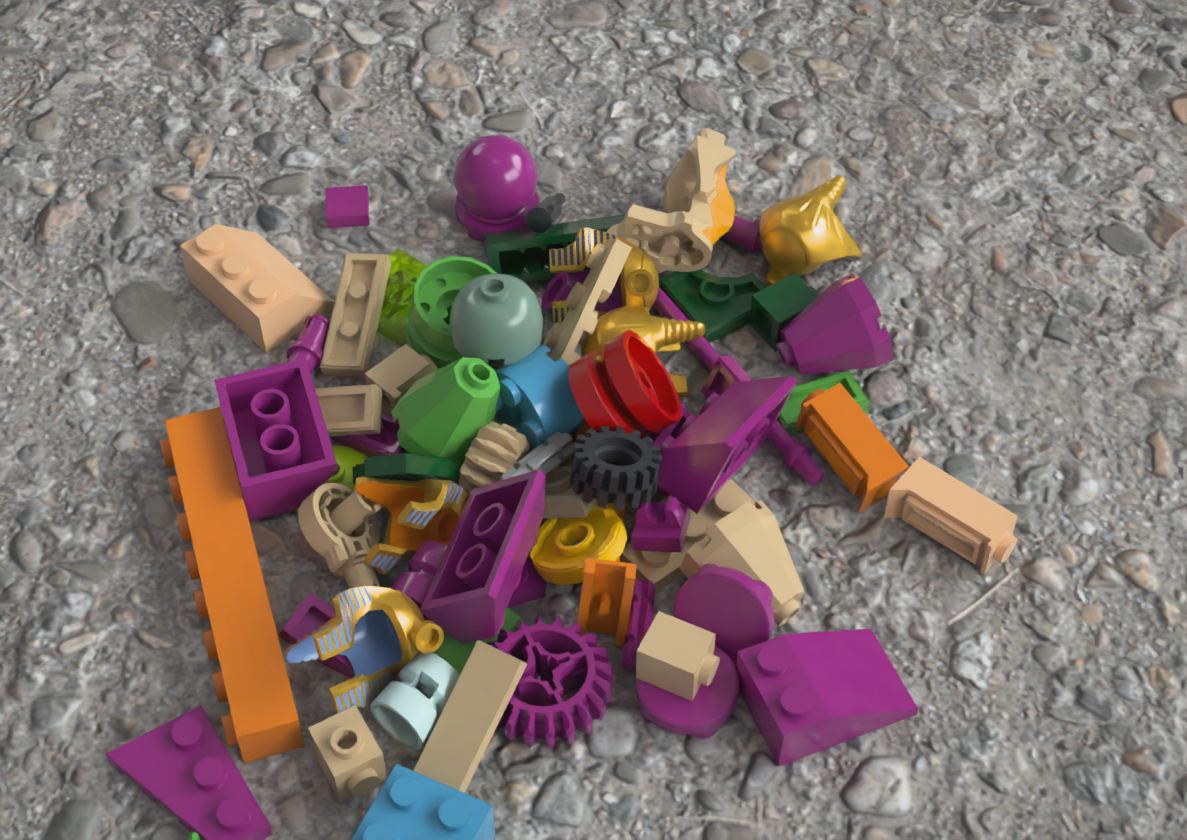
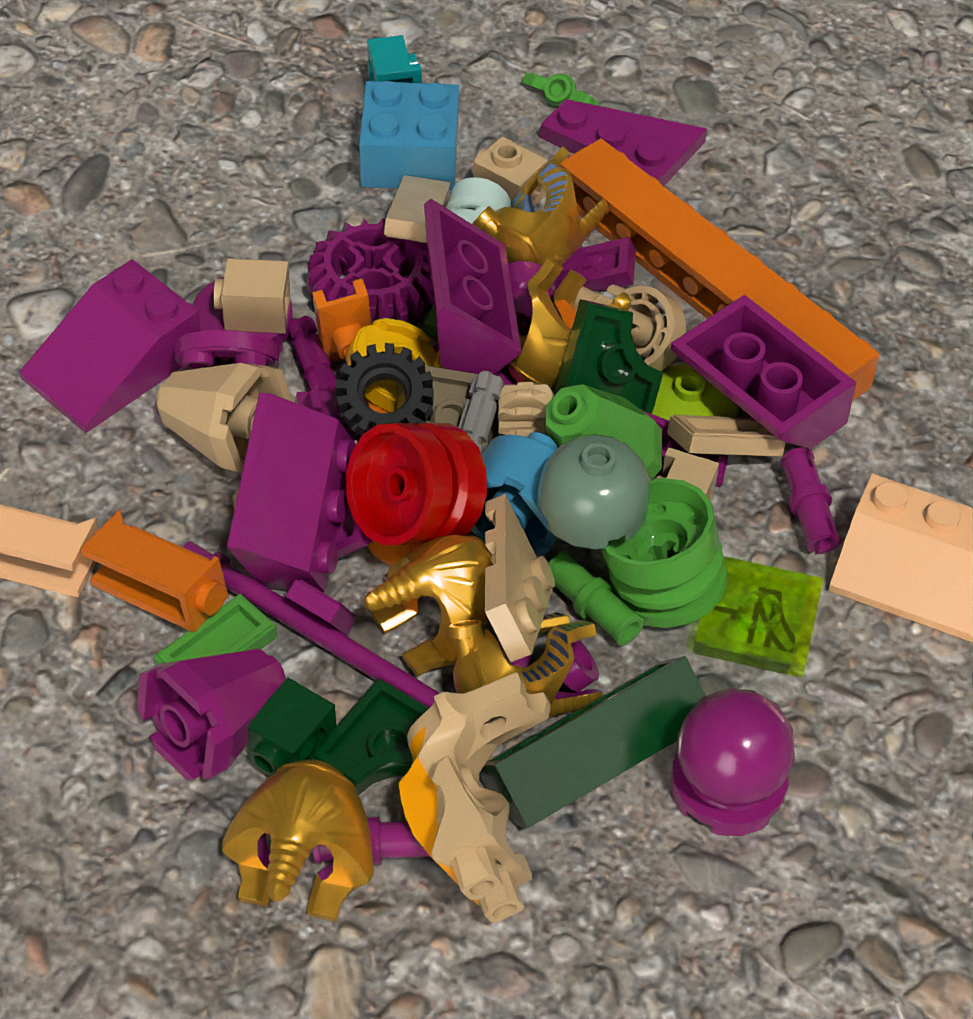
camera: 155 degrees right, 0 degrees up
(347, 206) = (912, 713): magenta tile -> none
(355, 315) = (789, 557): tan tile -> none
(545, 213) = (653, 759): black axle -> none

